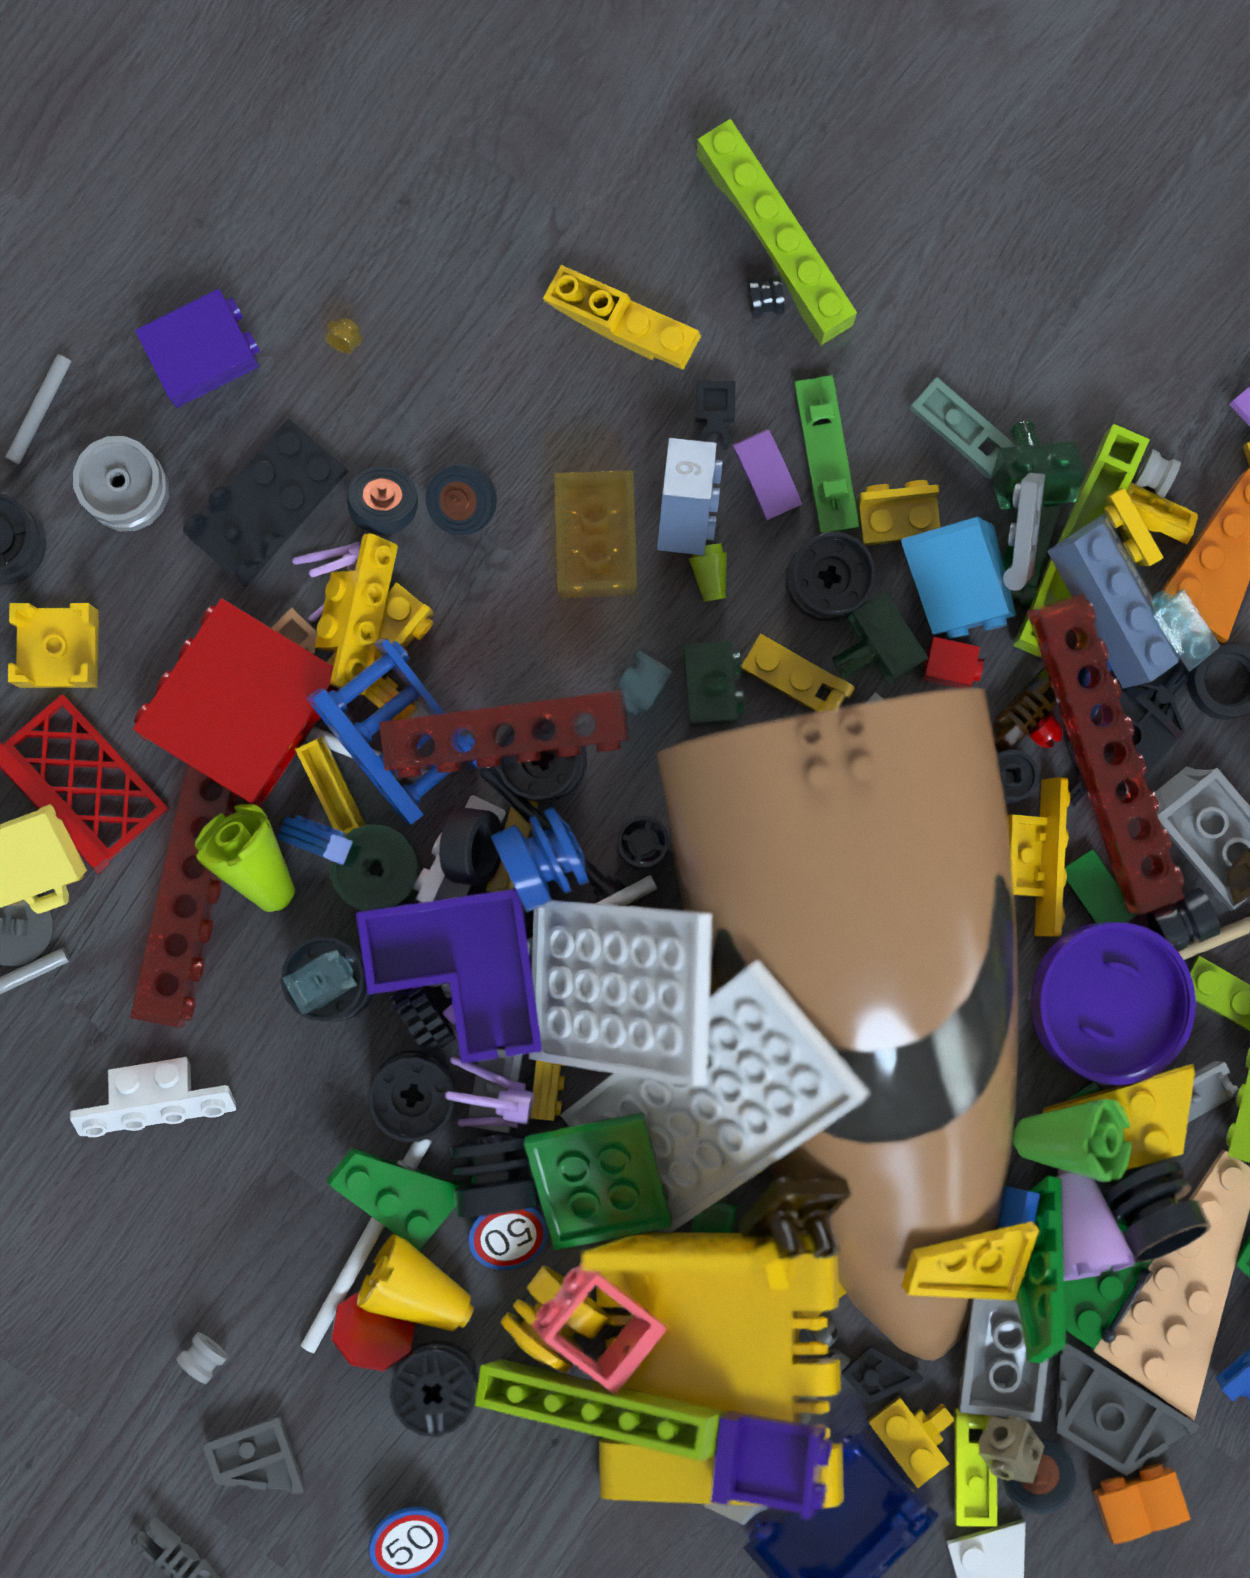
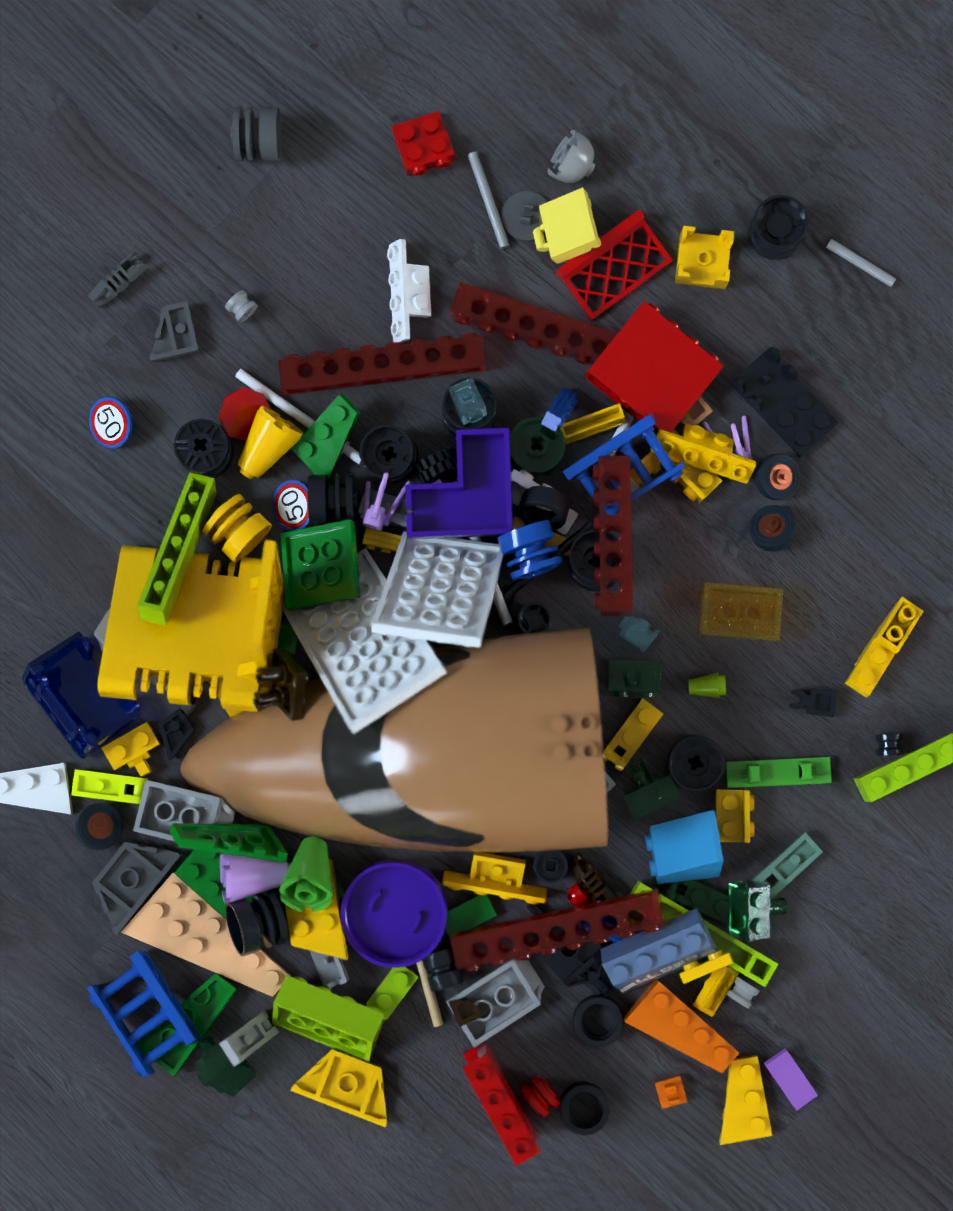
camera: 95 degrees right, 0 degrees up
(125, 461) = (814, 297): light grey wheel -> none
(198, 347) = (891, 369): dark purple brick -> none
(247, 857) = (553, 365): lime cone -> none
(315, 1260) = (395, 371): none -> clear red brick
(343, 335) = (890, 463): clear yellow plate -> none
(624, 1352) = (211, 568): coral window -> none
(689, 496) = (758, 675): sand blue brick -> none
(767, 474) = (769, 731): medium lavender slope -> none
(770, 1463) = (130, 650): dark purple panel -> none
(825, 1335) = (205, 701): dark grey hinge -> none
(952, 663) = (629, 838): red brick -> none
(973, 1266) = (236, 796): yellow wing -> none
(1011, 1449) = (118, 809): dark tan brick -> none
(1018, 1207) = (268, 833): blue tile -> none
(1025, 532) = (711, 894): light grey plate -> none
(1108, 1334) = (182, 883): black hinge -> none
(1141, 1503) = (72, 890): orange brick -> none
(1183, 627) = (635, 993): clear light blue hinge -> none

